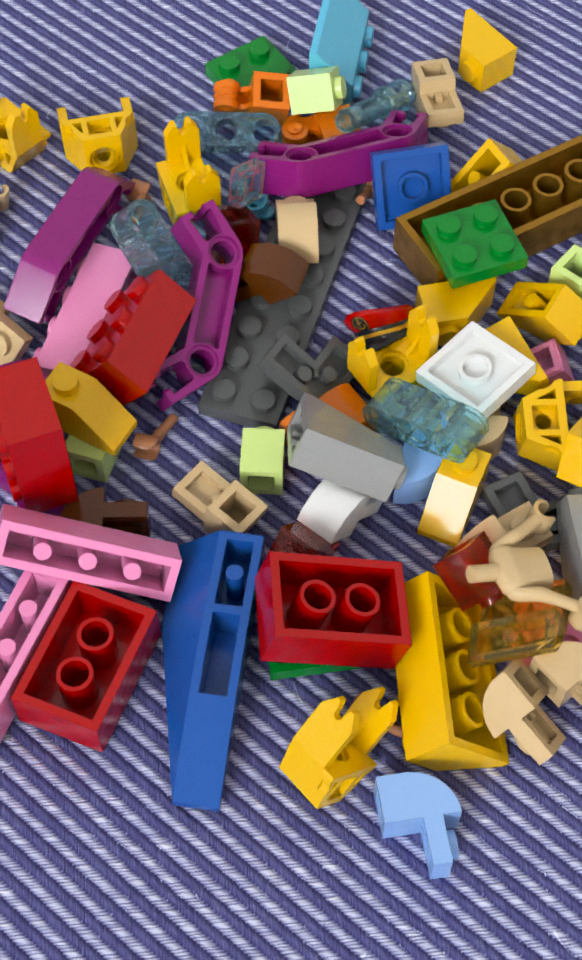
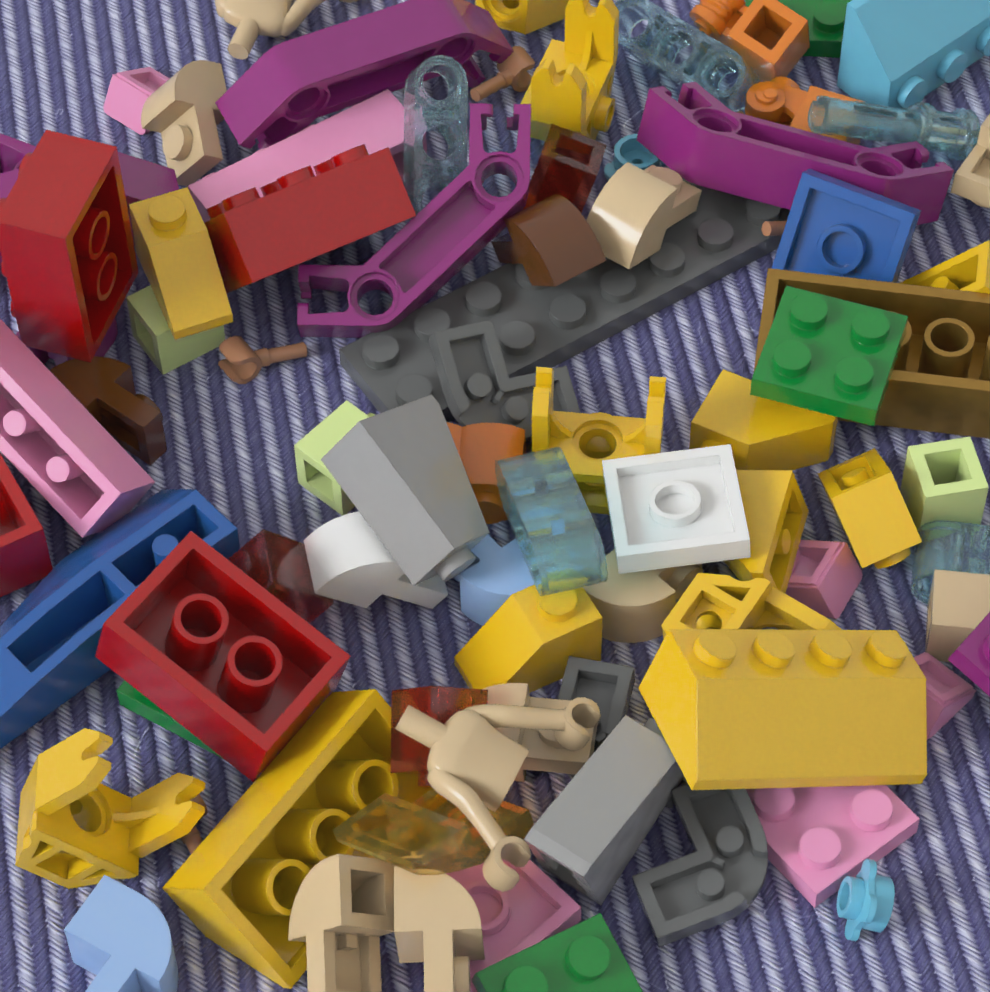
camera: 40 degrees right, 5 degrees down
(218, 502) = (245, 466): tan brick -> none
(246, 183) = (621, 119): clear light blue tile -> none
(316, 90) = (826, 58): yellowish green brick -> none
(379, 326) = (623, 387): piece -> none

